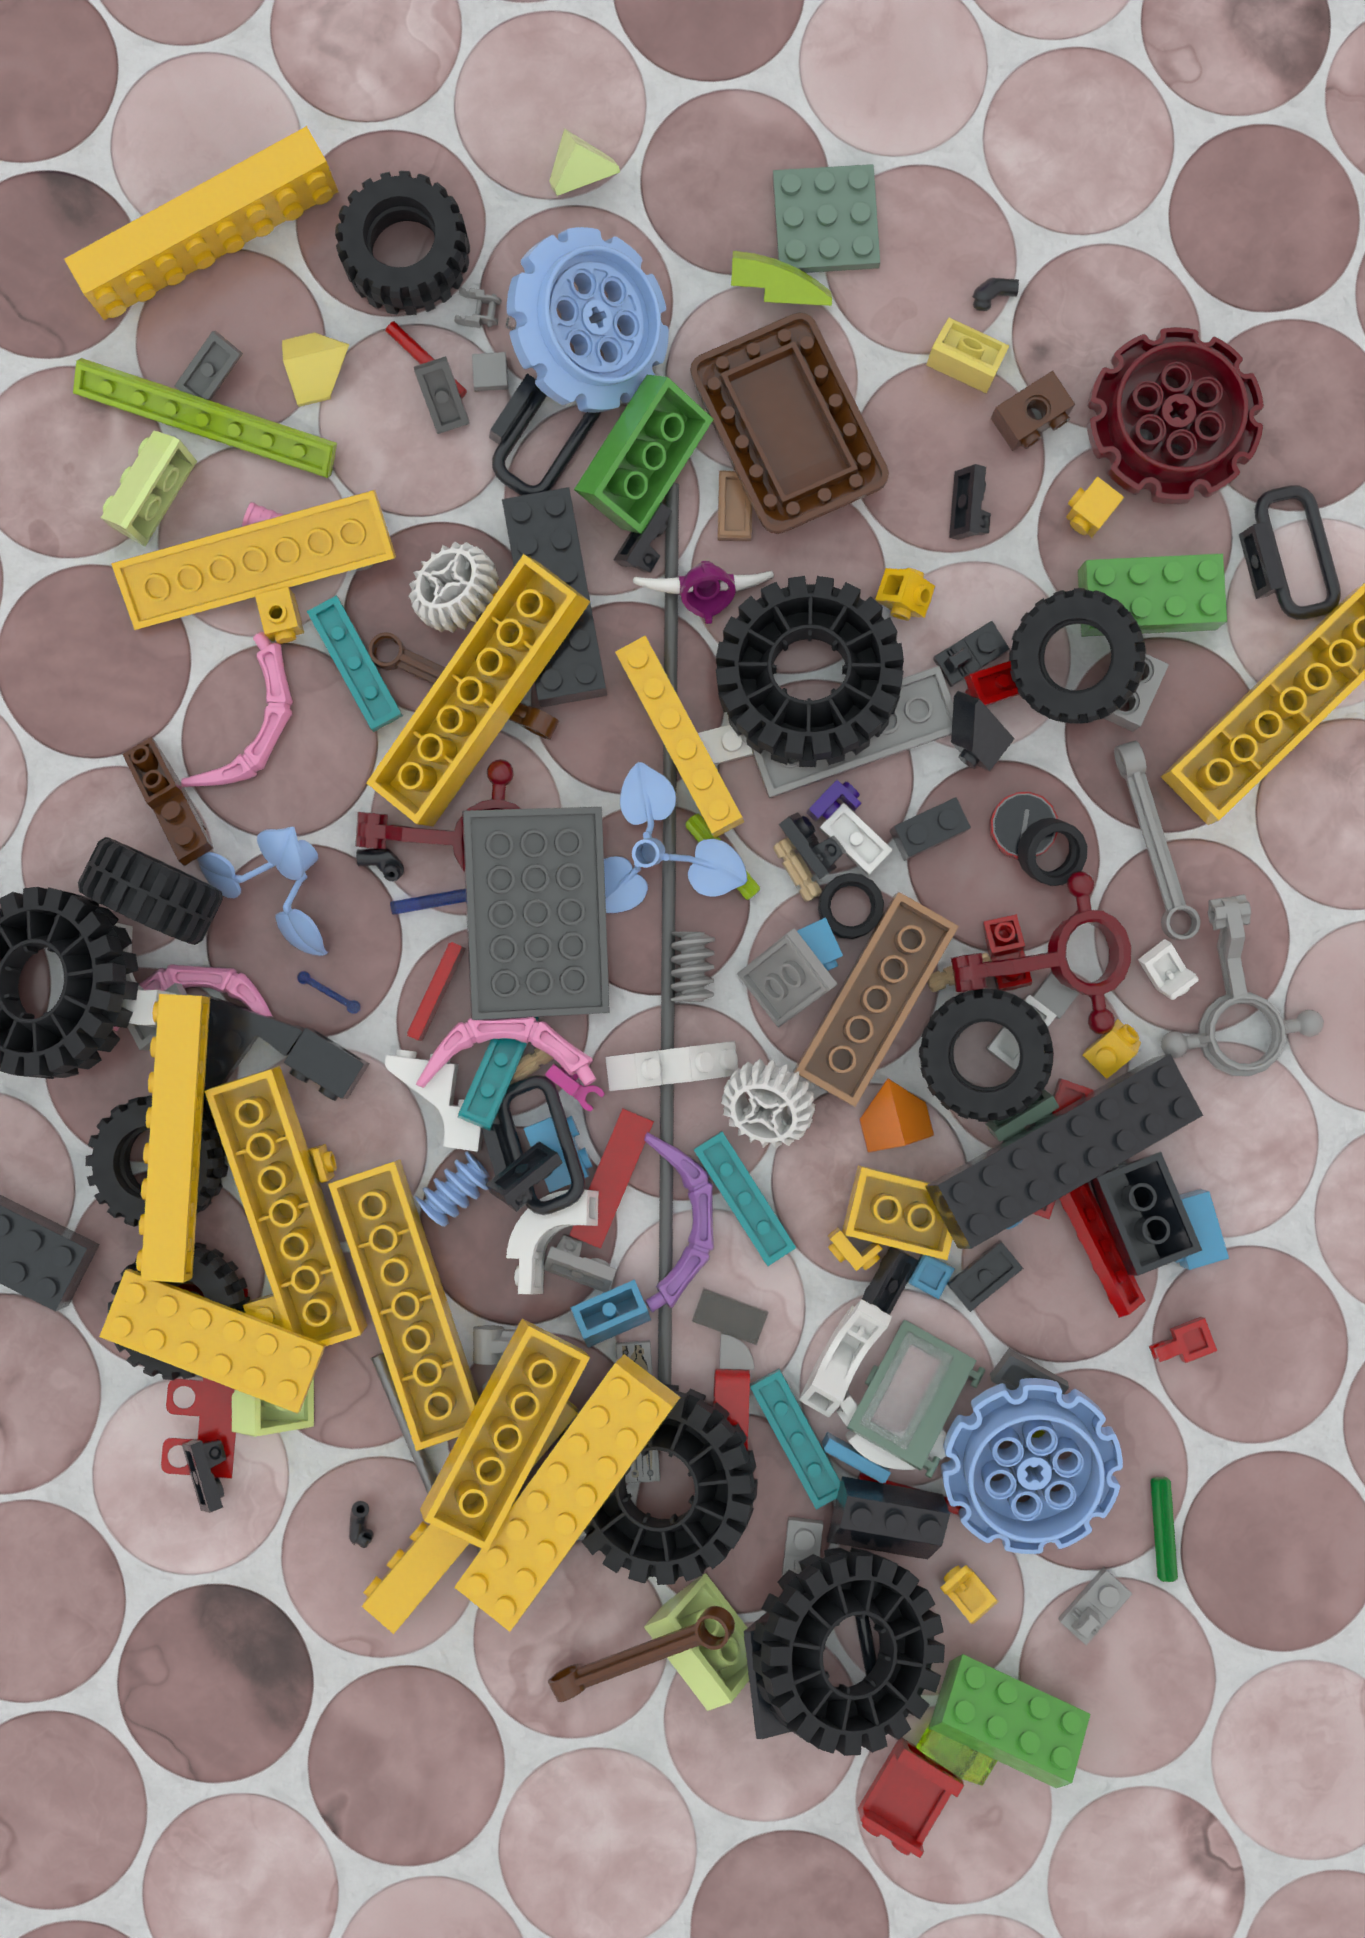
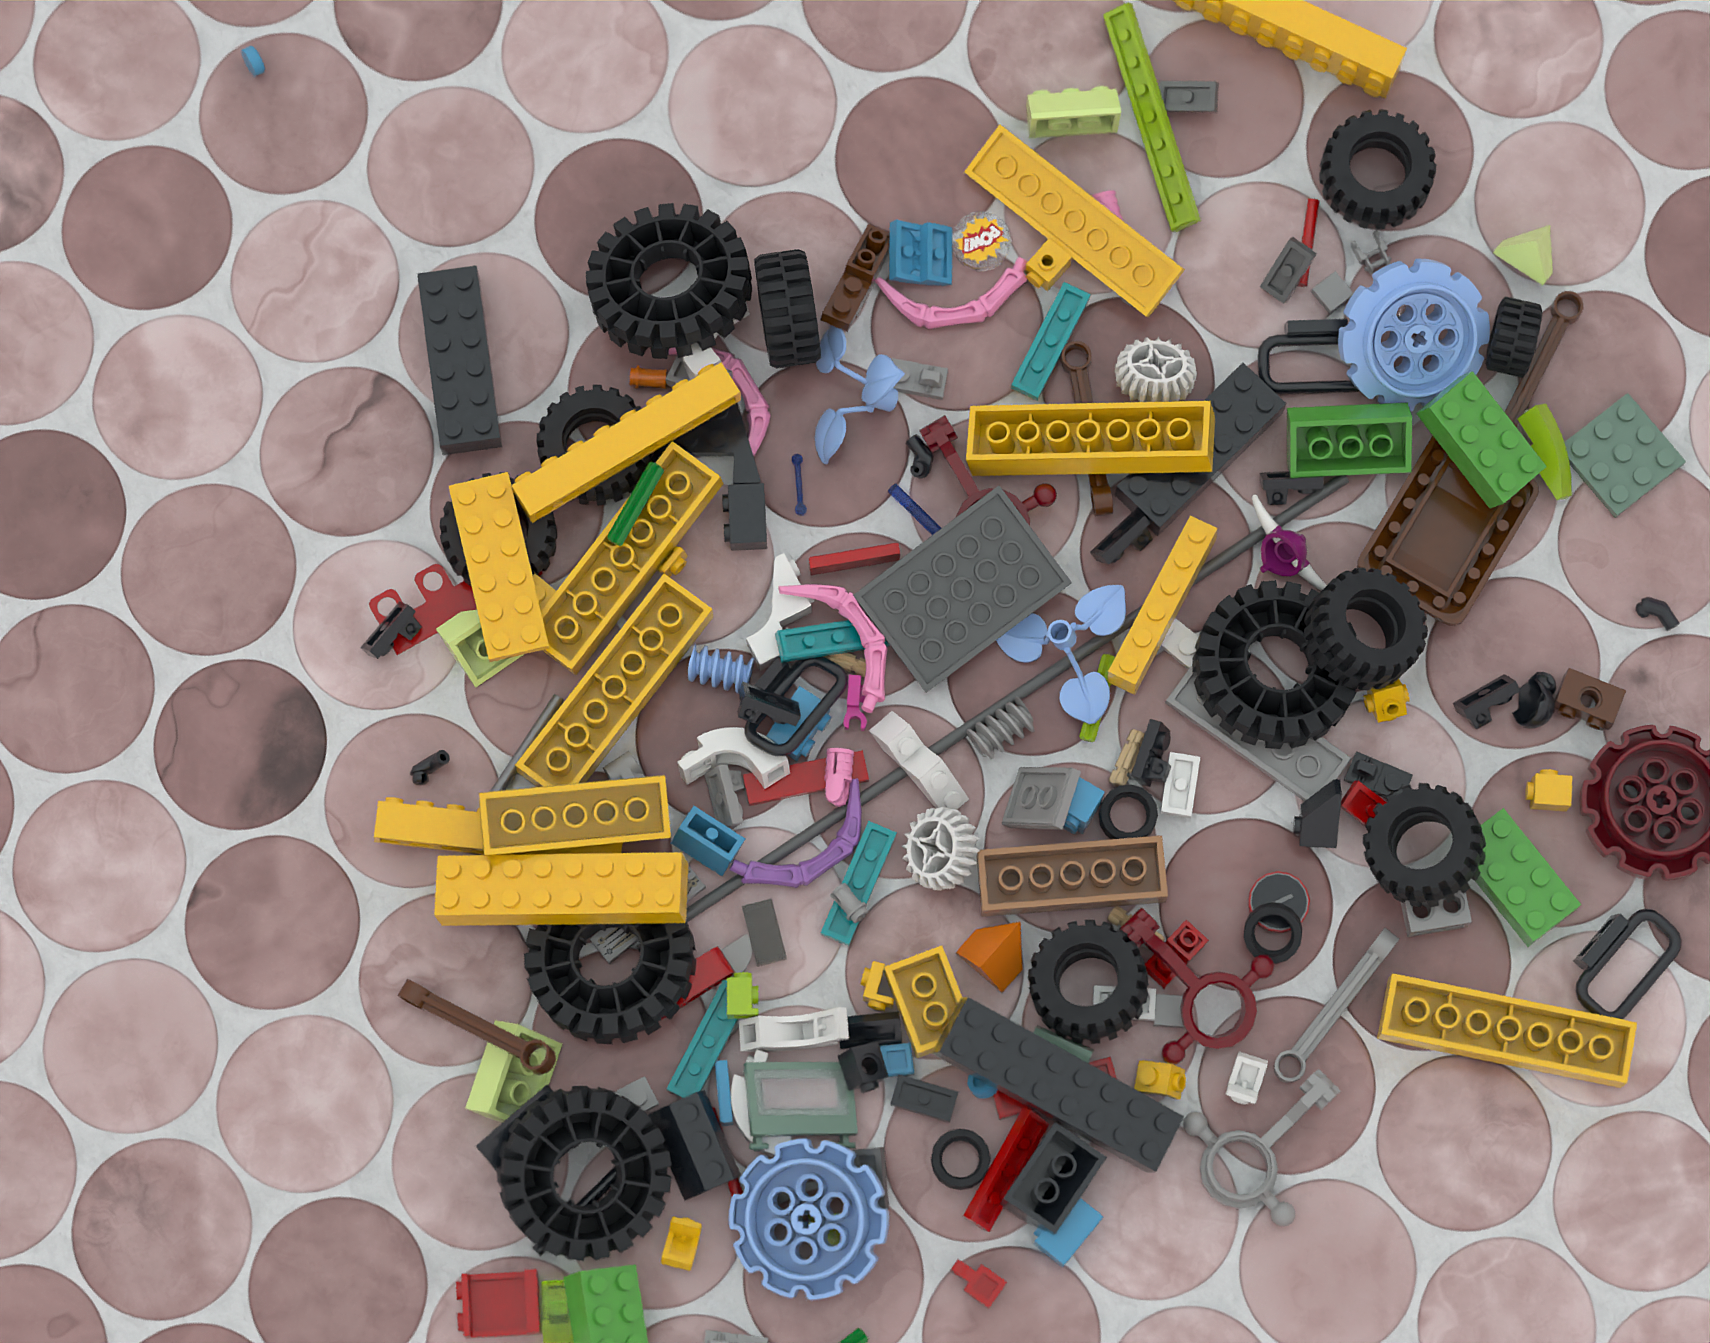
camera: 55 degrees right, 10 degrees down
(126, 1064) = (647, 377): none -> orange pin
(185, 725) = (920, 253): none -> dark azure slope
(213, 660) = (981, 241): none -> tile
(241, 1168) = (635, 503): none -> green axle
(305, 809) = (921, 379): none -> light grey hinge
(313, 366) = (1244, 166): light yellow slope -> none
(586, 718) = (1130, 531): none -> black hinge
(633, 1150) = (838, 775): none -> bright pink hinge
(653, 230) = (1513, 337): none -> black tyre
(729, 301) = (1543, 355): none -> reddish brown piece
(732, 329) = (1481, 440): none -> bright green brick
(733, 509) = (1354, 536): medium nougat tile -> none
(761, 1223) = (849, 903): none -> light grey pin
(781, 1385) = (741, 996): none -> lime brick
(828, 804) = (1194, 745): dark purple bracket -> none
(845, 528) = (1390, 607): none -> black tyre
(910, 1323) = (872, 1060): none -> black brick
(930, 829) = (1225, 832): black brick -> none
(967, 355) = (1597, 623): light yellow slope -> none
(1004, 460) = (1536, 701): none -> black hair
(1087, 1293) = (966, 1136): none -> black tyre

